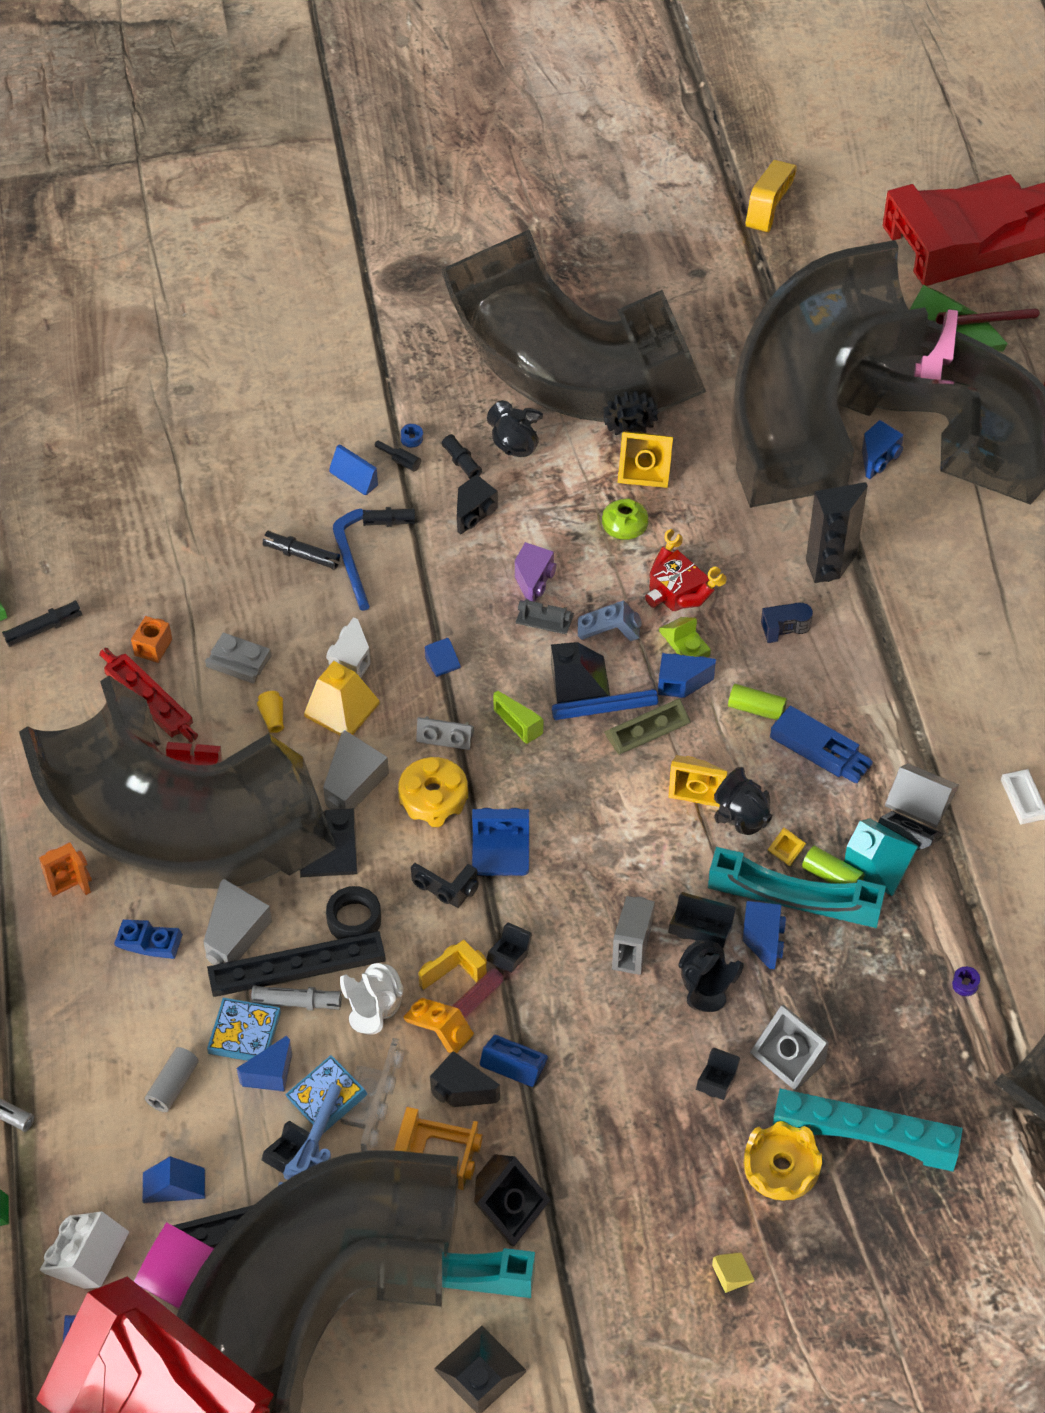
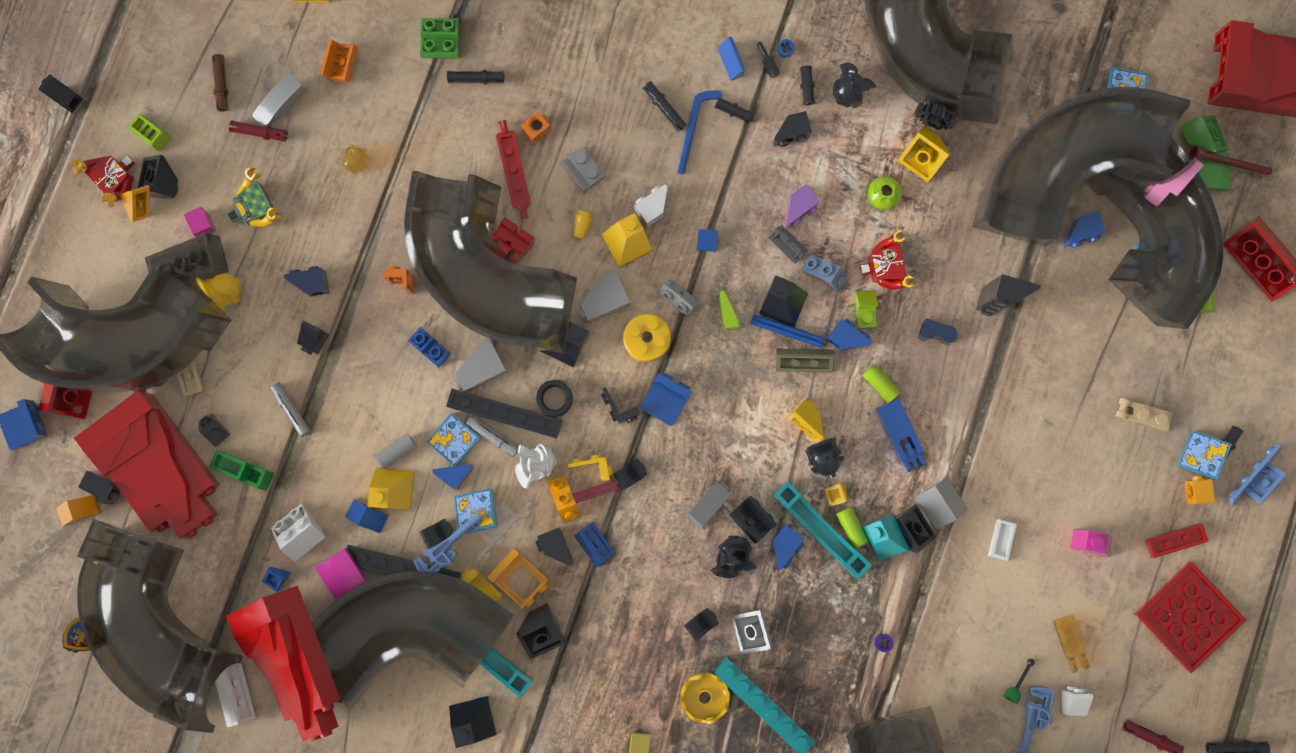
camera: 25 degrees right, 30 degrees up
(193, 1132) = (391, 489): none -> yellow slope

